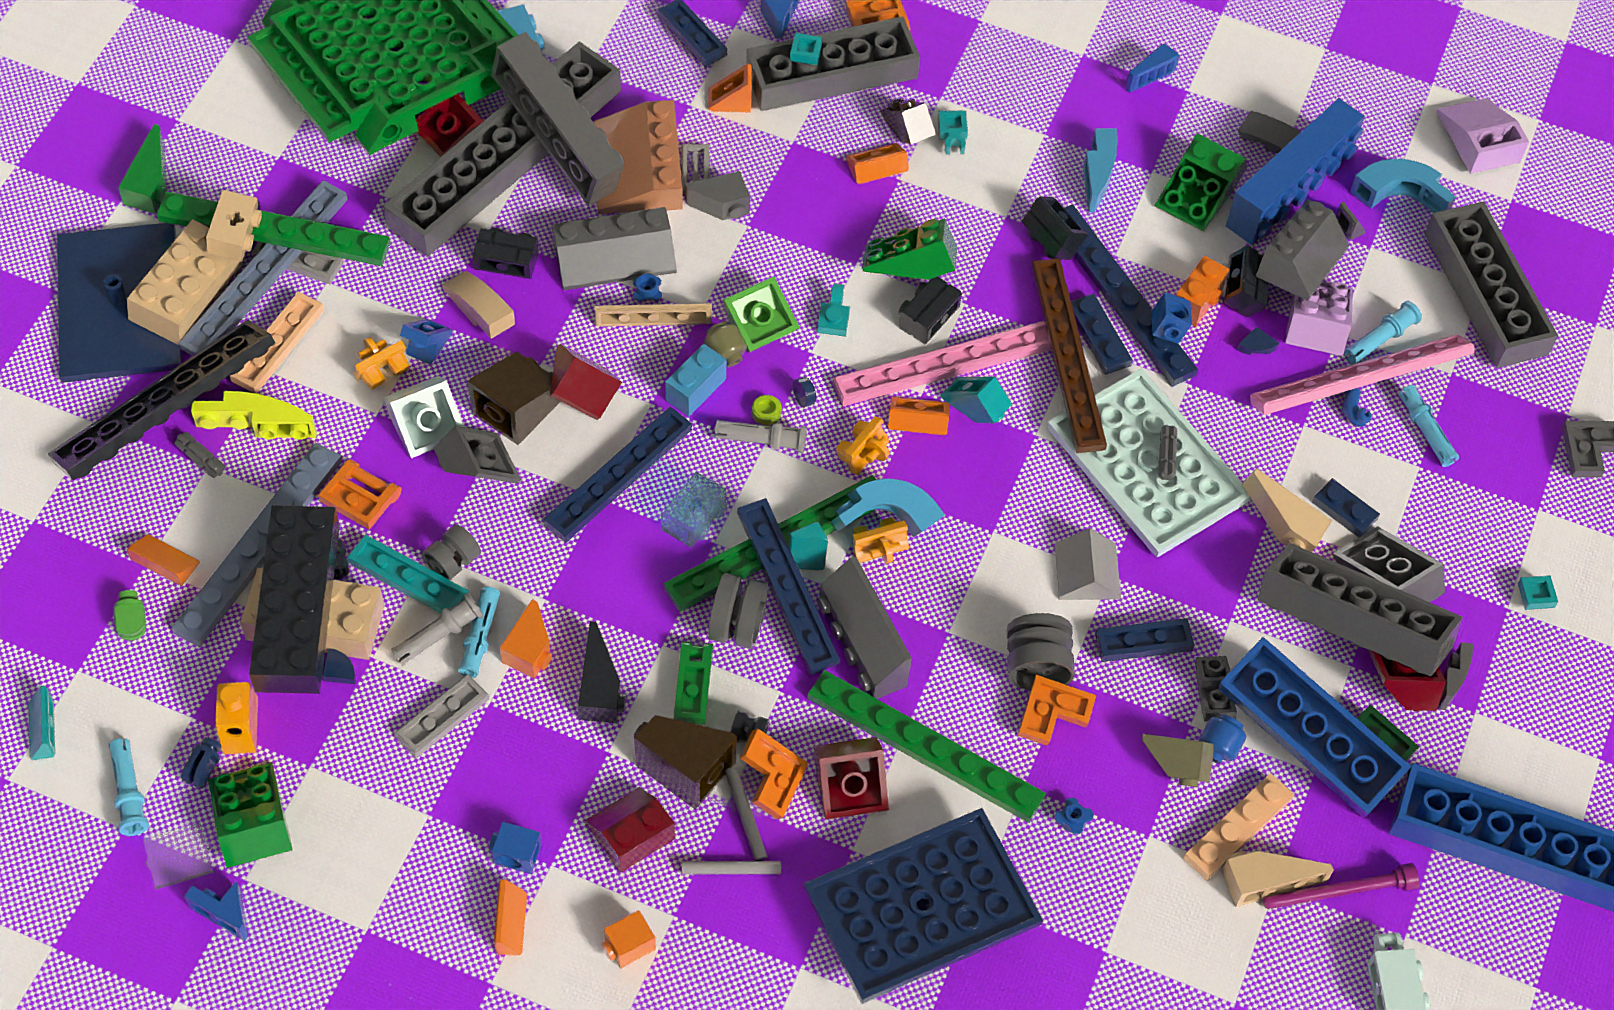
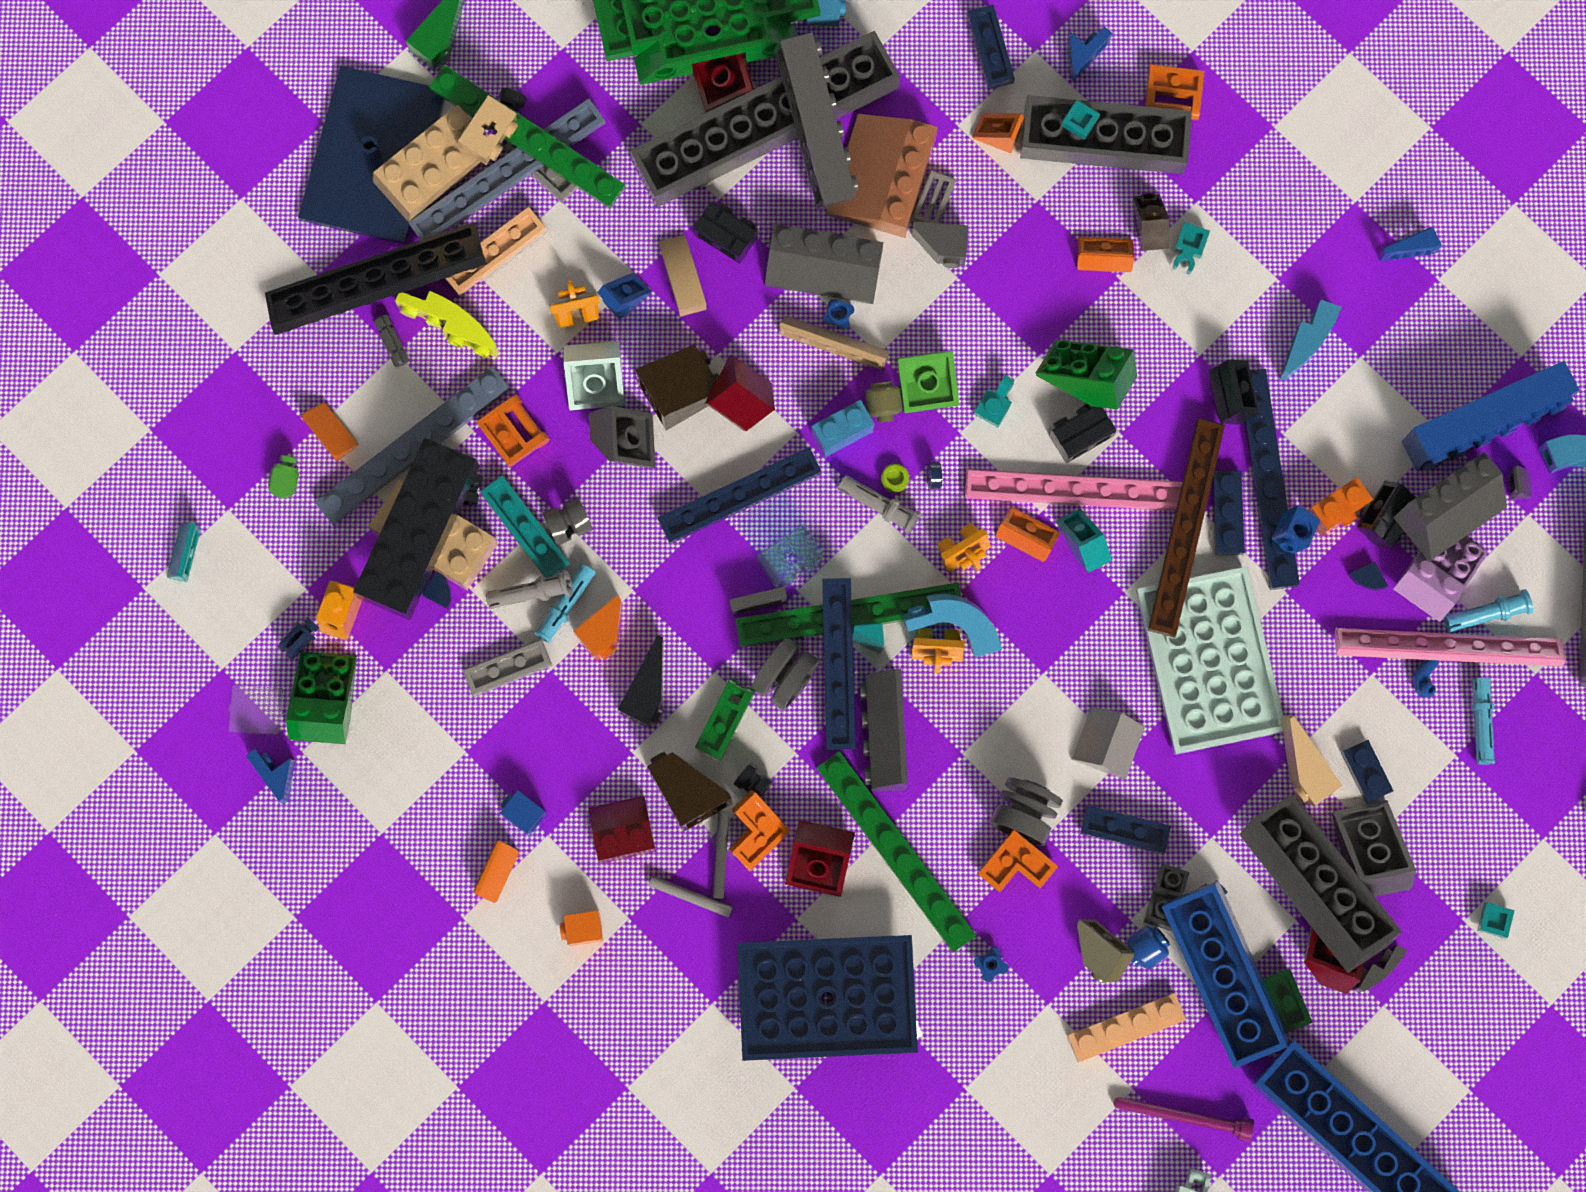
camera: 25 degrees right, 20 degrees up
(129, 799) = (231, 648): medium azure pin -> none
(679, 559) = (758, 600): none -> dark grey tile
(1167, 452) = (1228, 662): dark grey axle -> none
(1201, 182) = (1397, 391): green slope -> none
(1265, 874) = (1123, 1080): tan slope -> none
(1267, 130) = (1490, 360): dark grey slope -> none

